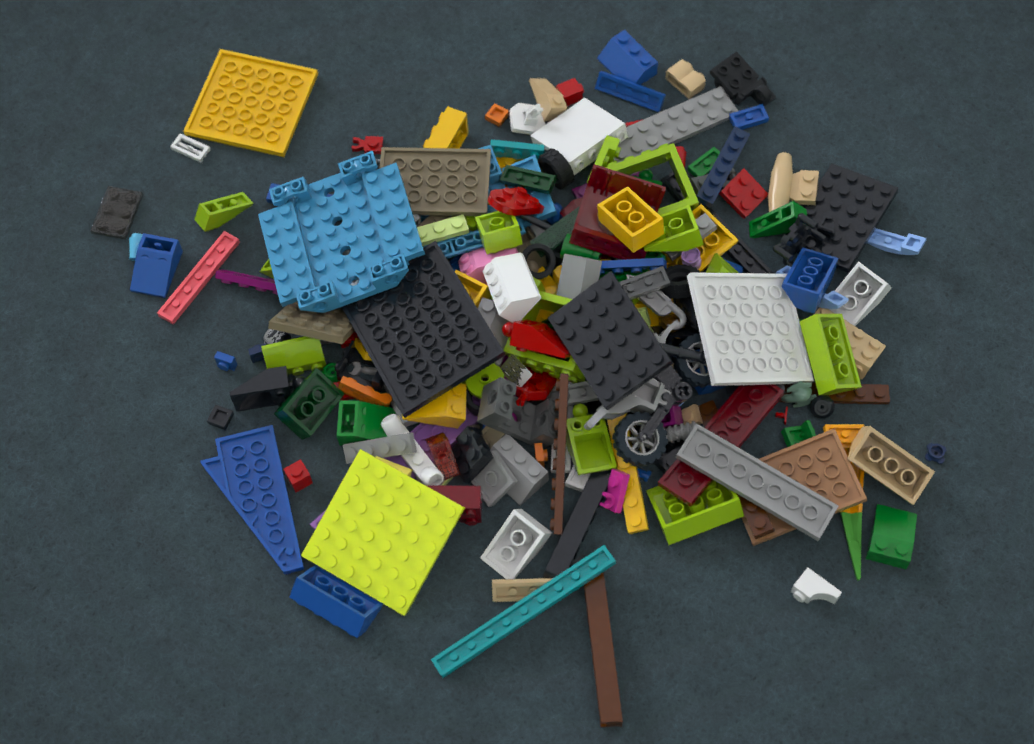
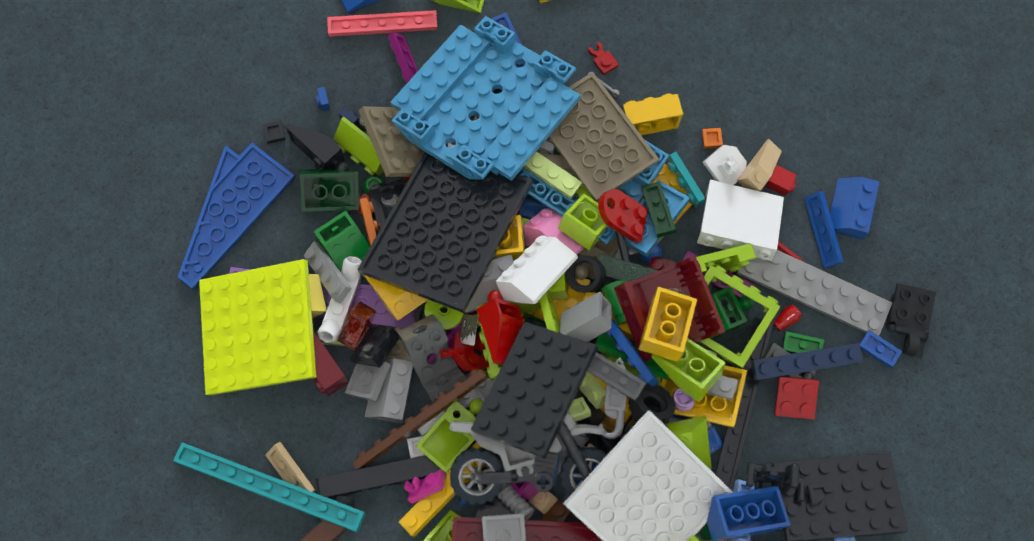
camera: 45 degrees right, 10 degrees up
(298, 475) = (264, 227): red brick -> none
(335, 600) = (180, 334): blue slope -> none
(515, 544) = (326, 438): white slope -> none
(540, 454) = (417, 401): orange plate -> none
(555, 164) = (692, 224): black tyre -> none
(685, 79) = (875, 267): tan brick -> none
(776, 221) = (789, 447): green slope -> none
(786, 186) = (835, 432): tan plate -> none

